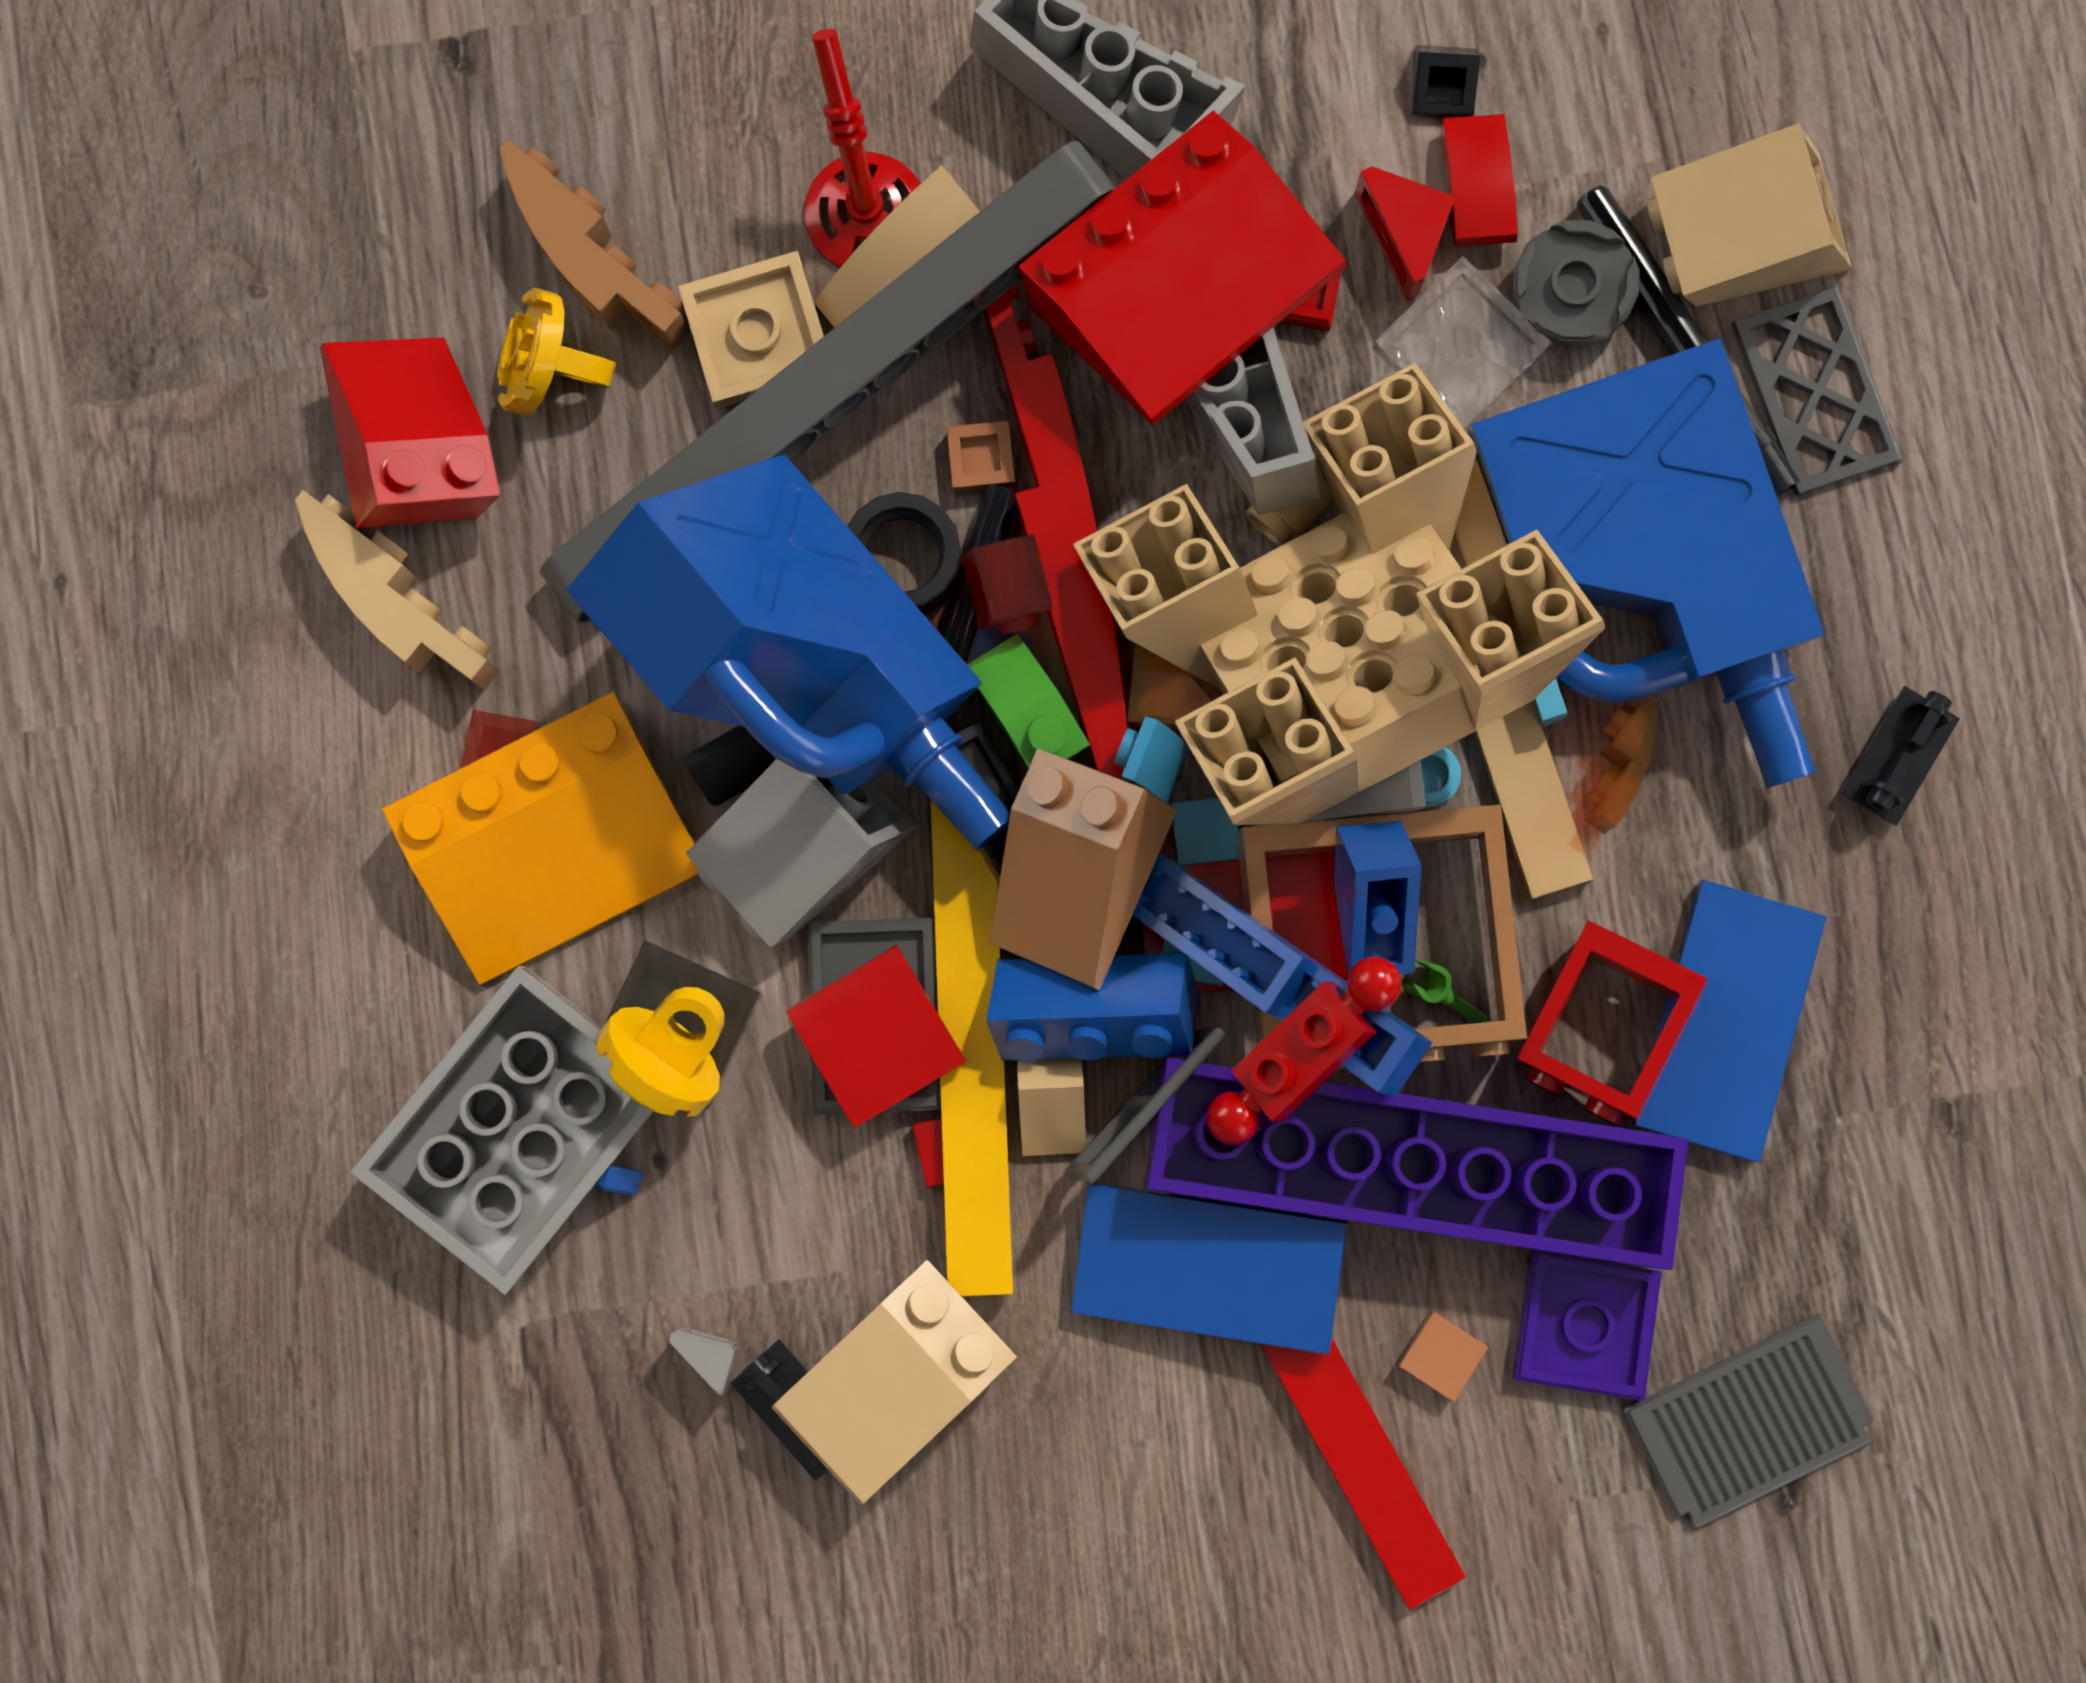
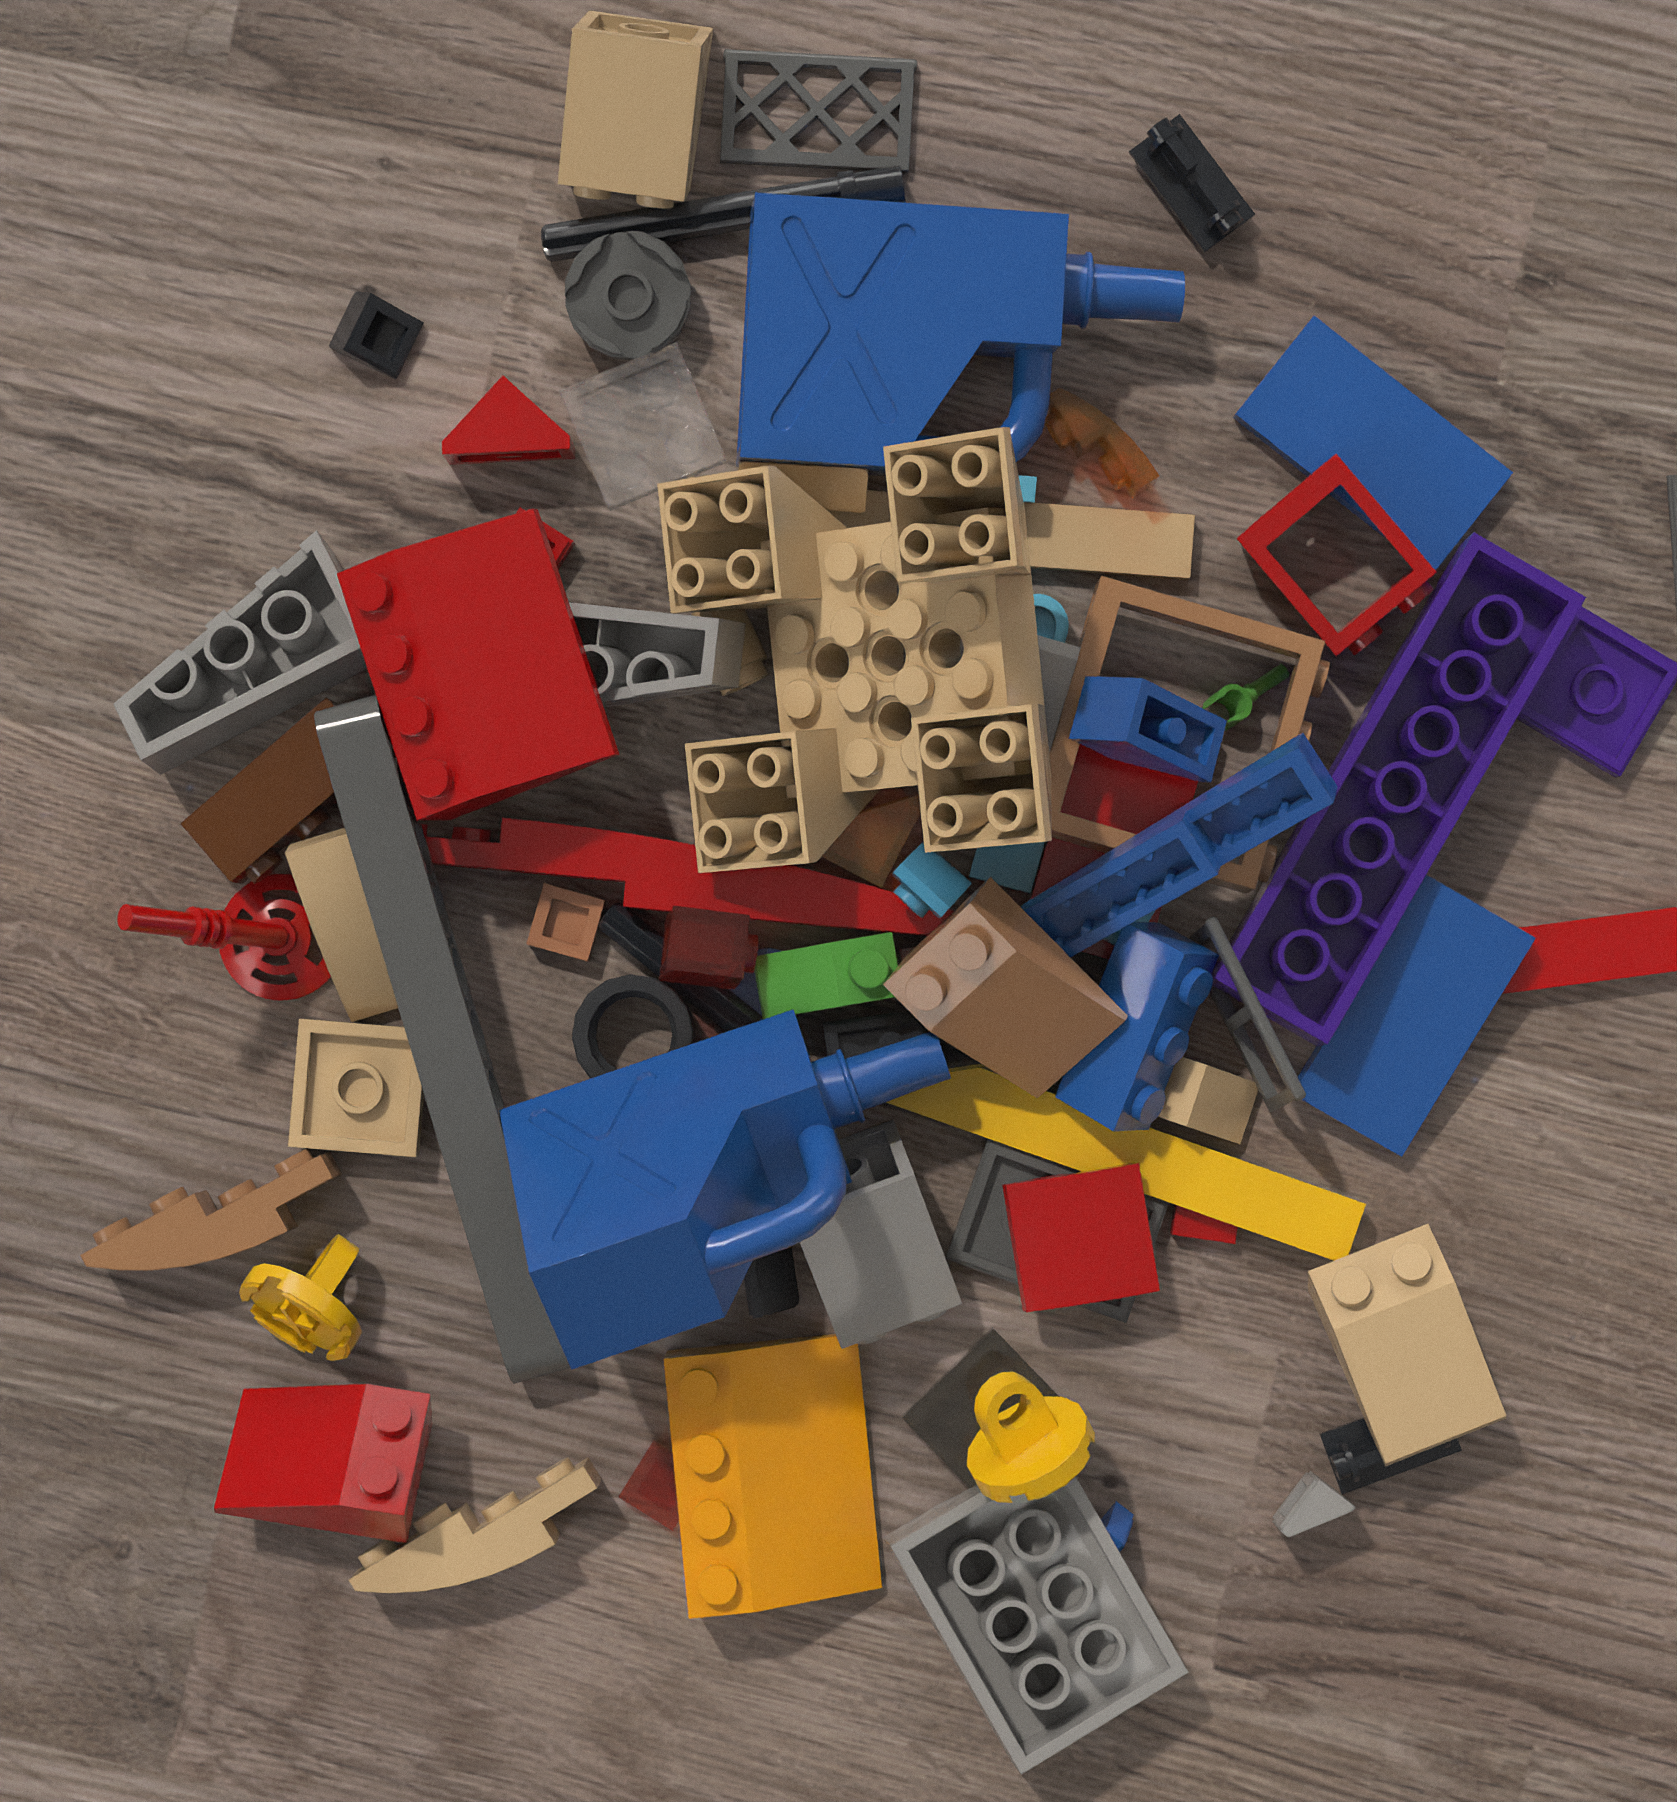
camera: 70 degrees left, 5 degrees up
(972, 140) = (267, 805): none -> reddish brown brick
(1304, 1050) = (1266, 853): red plate -> none
(1442, 1356) = (1572, 833): nougat tile -> none
(1481, 180) = (489, 342): red slope -> none

